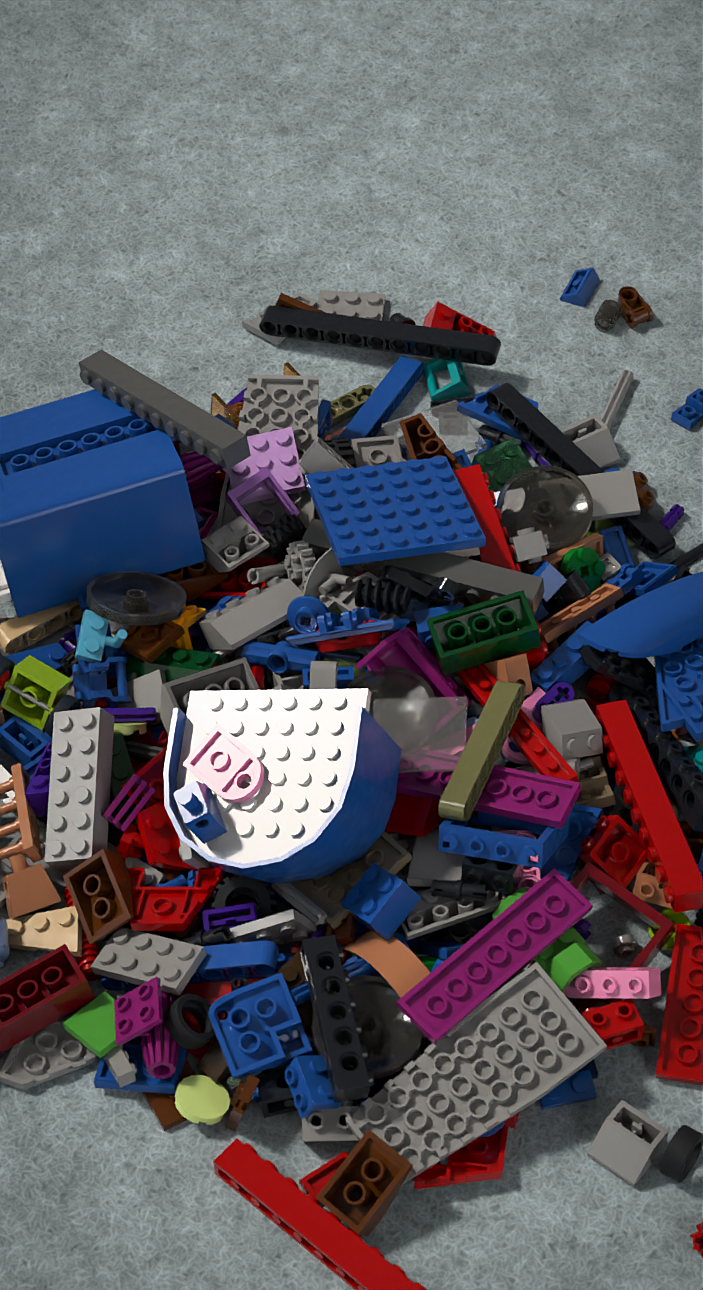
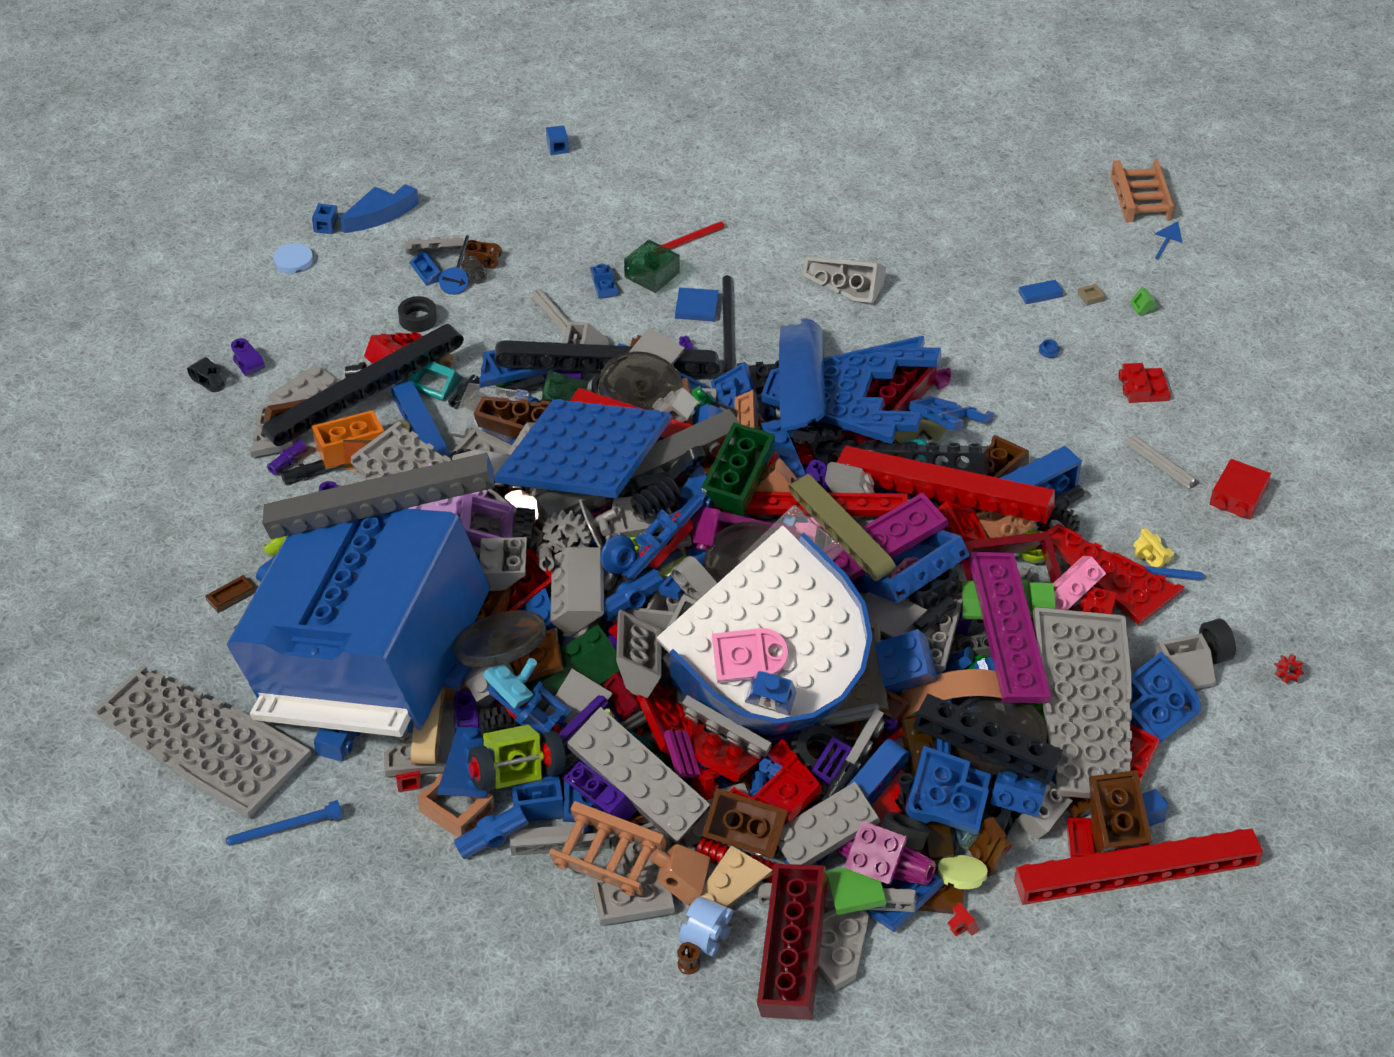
camera: 55 degrees left, 5 degrees down
(149, 1133) = (962, 921): none -> red tile
(254, 367) = (303, 471): none -> black pin
(261, 347) = (287, 457): none -> dark purple pin
(304, 238) = (207, 374): none -> black piece
(310, 359) = (330, 435): none -> orange brick
(346, 248) = (246, 357): none -> dark purple piece
(410, 1212) = (1155, 807): none -> blue brick
(476, 371) = (446, 360): none -> medium nougat plate
(498, 198) = (292, 258): none -> light blue tile
(509, 327) = (417, 324): none -> black tyre
(553, 1143) = (1160, 698): none -> blue slope
(563, 184) = (325, 218): none -> blue brick
(583, 310) = (454, 279): none -> blue piece
(610, 269) = (433, 243): none -> light grey wing
(614, 208) = (378, 208): none -> blue slope

